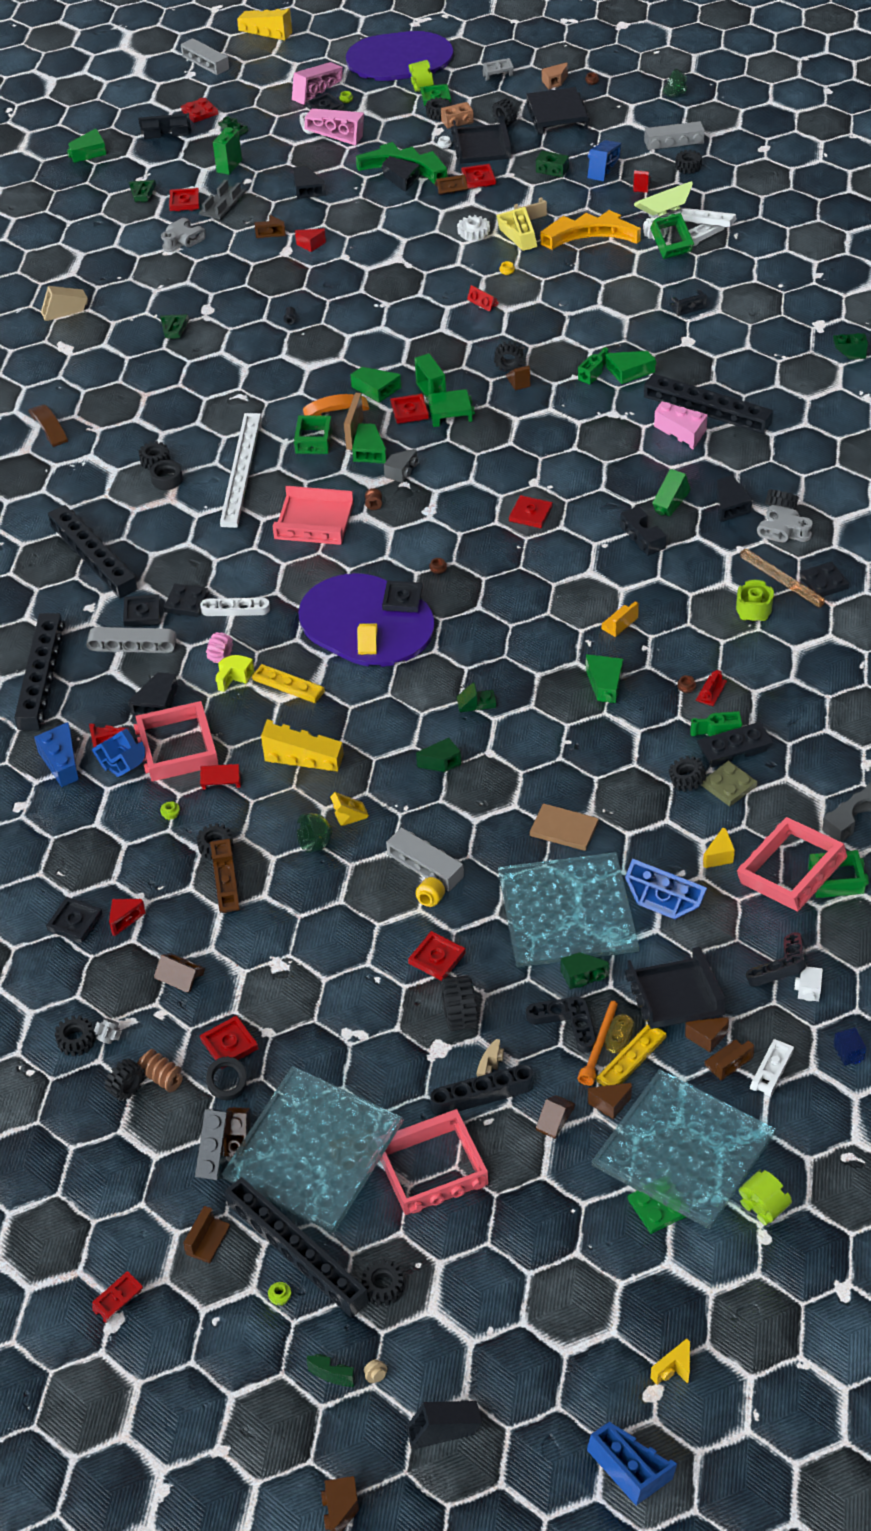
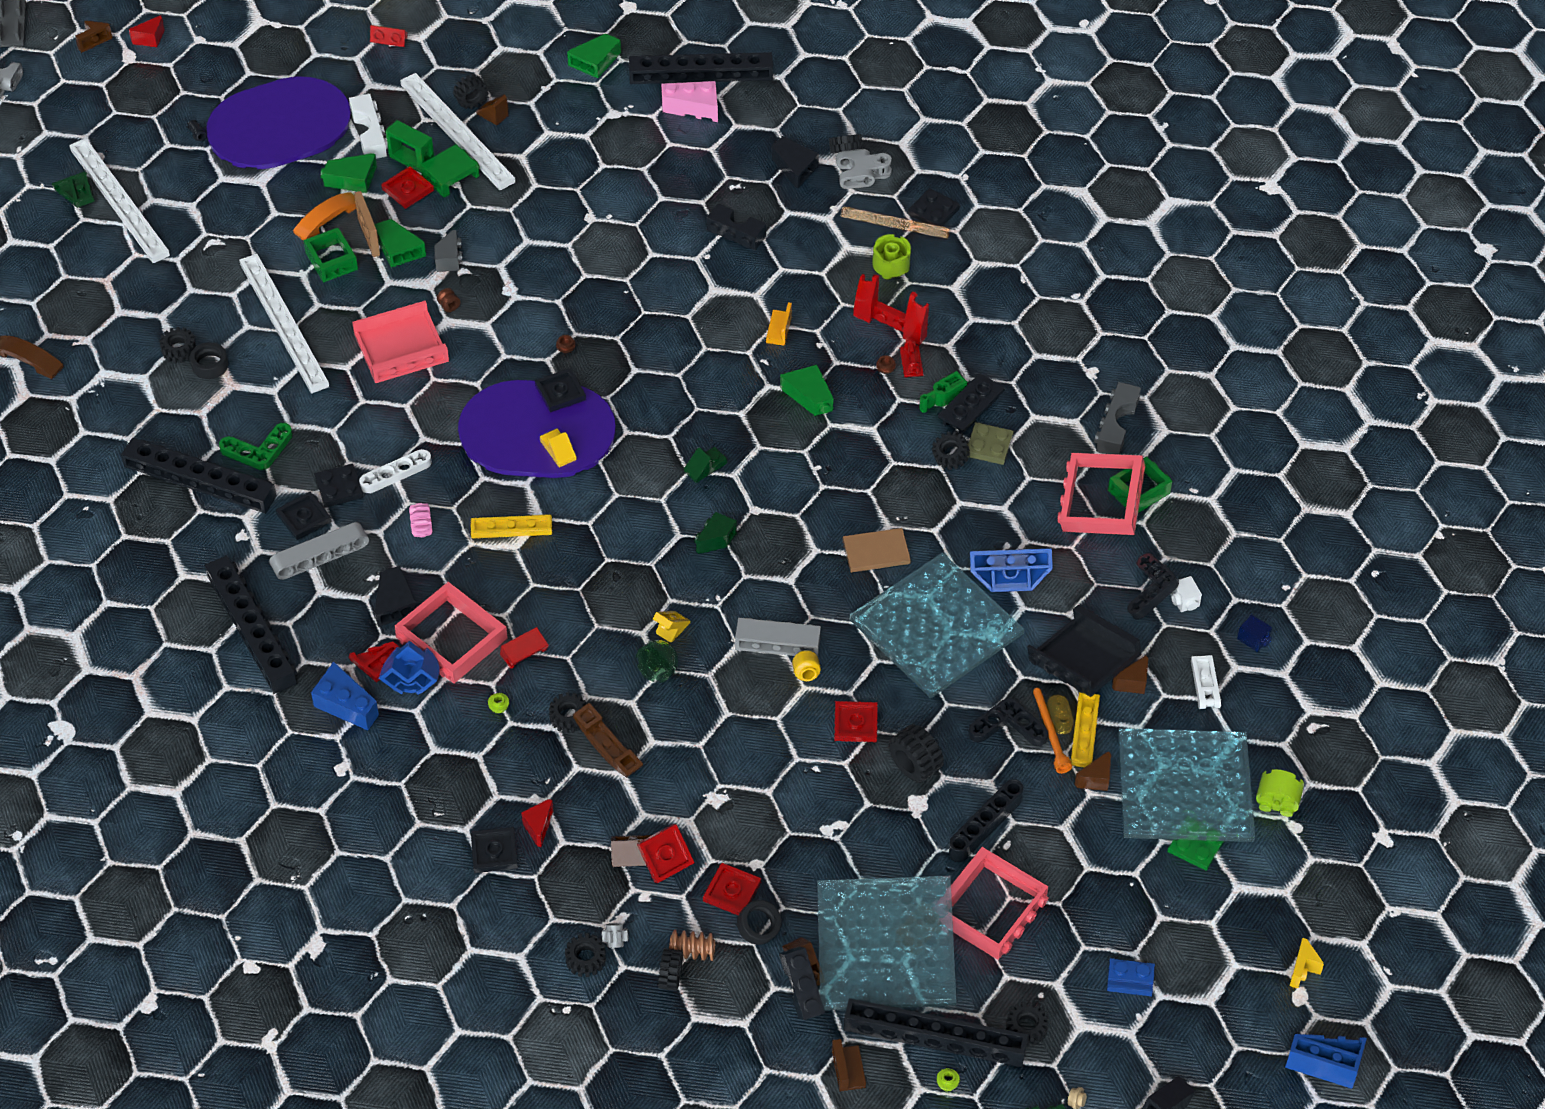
camera: 35 degrees left, 5 degrees up
(172, 548) = (262, 452): none -> green beam
(196, 344) = (119, 200): none -> white plate
(196, 985) = (665, 853): none -> red plate
(234, 668) = (450, 534): neon yellow brick -> none
(300, 748) = (582, 585): yellow wedge -> none
(353, 331) = (278, 122): none -> dark purple tile
(419, 344) = (364, 112): none -> white arch
(479, 383) = (457, 131): none -> white plate
(490, 1058) = (974, 796): tan slope -> none
(507, 1291) = (1130, 977): none -> blue plate
(530, 511) = (612, 250): red plate -> none
(554, 1115) = (1060, 812): slope -> none
(583, 969) = (990, 673): dark green slope -> none
(592, 367) = (560, 71): green piece -> none
(671, 493) = (737, 177): green slope -> none
(720, 851) = (1030, 509): yellow slope -> none
(729, 653) = (912, 323): none -> red wedge
(730, 1058) = (1165, 691): reddish brown panel -> none

